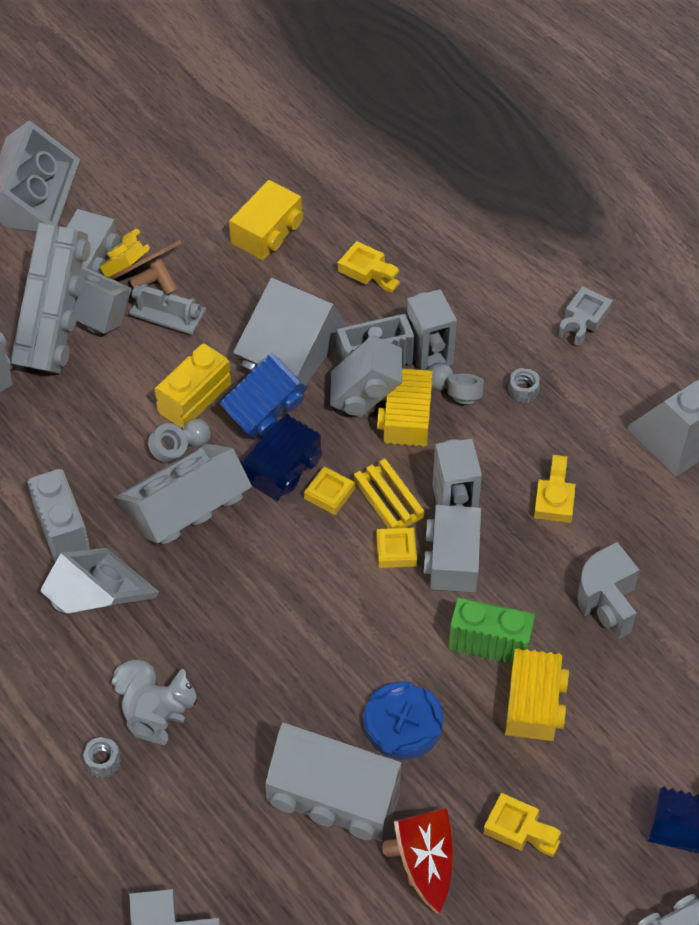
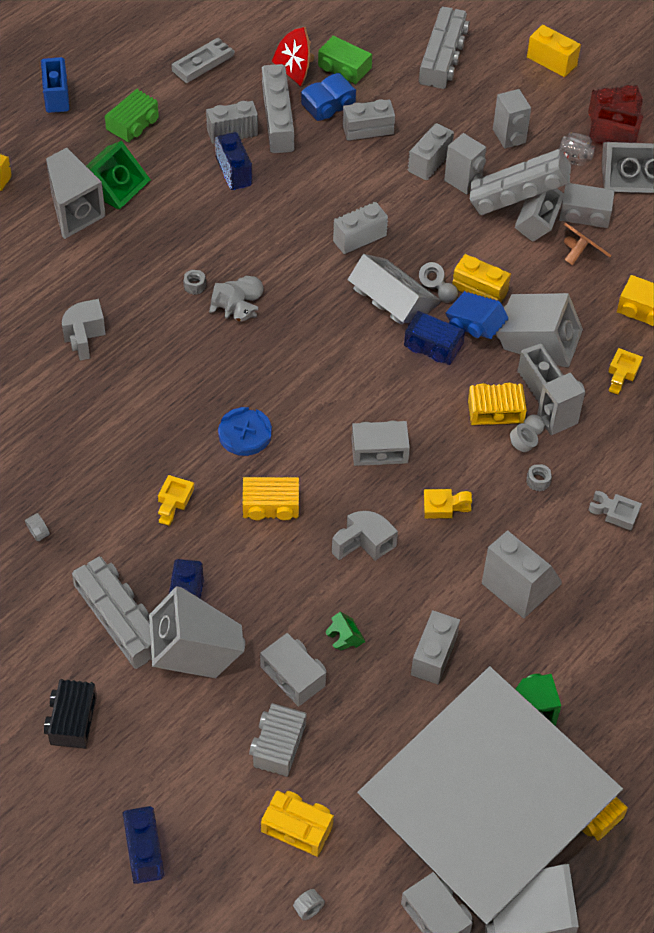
camera: 80 degrees right, 0 degrees up
(93, 581) = (314, 255): light grey slope -> none
(124, 254) = (583, 224): yellow plate -> none
(166, 310) = (549, 259): light grey hinge -> none
(329, 490) = (417, 372): yellow tile -> none
(333, 782) = (184, 391): light grey slope -> none
(366, 376) = (505, 368): light grey brick -> none
(385, 469) = (417, 401): yellow tile -> none
(396, 547) = (378, 411): yellow tile -> none
(426, 854) = (143, 443): red shield -> none
(456, 474) = (430, 430): light grey brick -> none
(489, 630) = (314, 467): bright green brick -> none

